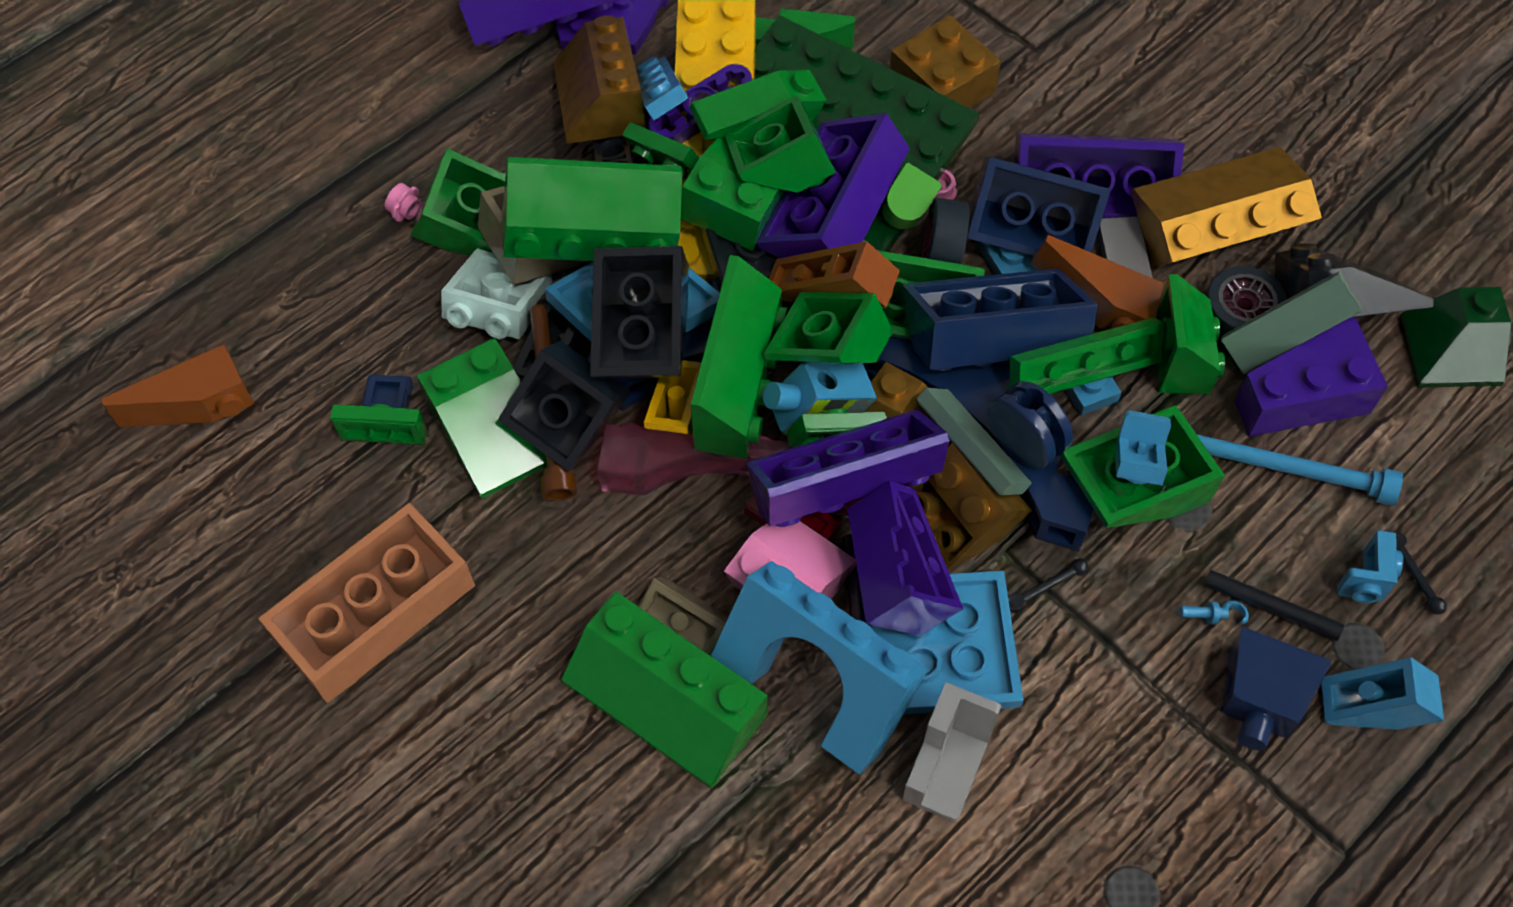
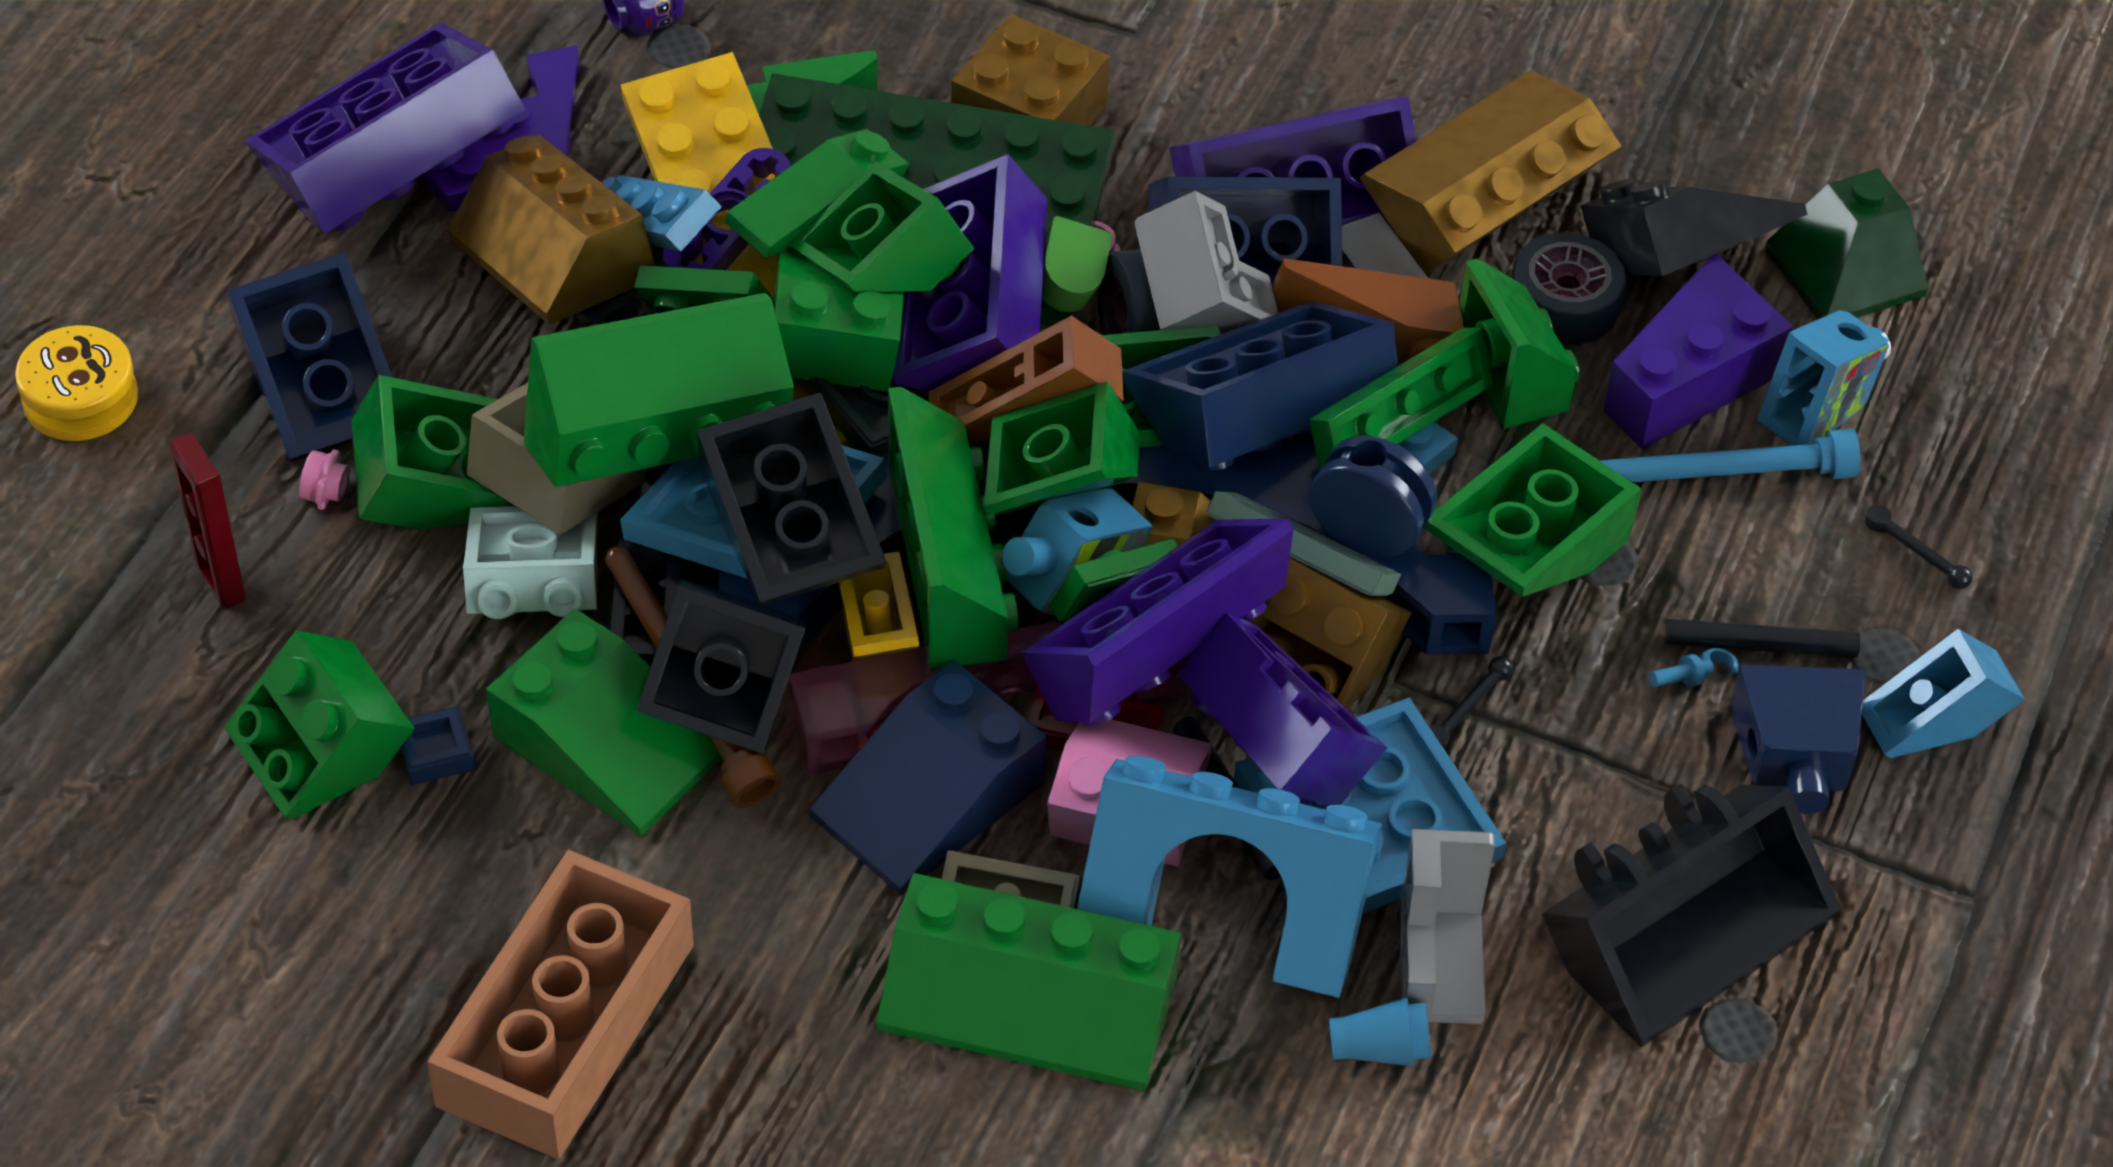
camera: 25 degrees left, 10 degrees down
(187, 393) = (134, 824): dark orange slope -> none
(294, 99) = (76, 383): none -> yellow head
(304, 212) = (207, 520): none -> dark red tile
(322, 361) = (317, 723): none -> green slope
(379, 424) = (448, 778): green plate -> none
(431, 111) = (309, 351): none -> dark blue slope
(669, 523) = (932, 777): none -> dark blue slope
(882, 811) = (1383, 1034): none -> dark azure cone
(984, 229) = (1197, 268): none -> light grey panel
(1134, 793) = (1691, 905): none -> black piece
(1141, 448) = (1527, 481): dark azure bracket -> none
(1292, 322) = (1641, 283): sand green tile -> none
(1380, 570) = (1871, 556): dark azure bracket -> none
(1410, 419) = (1828, 359): none -> dark azure torso

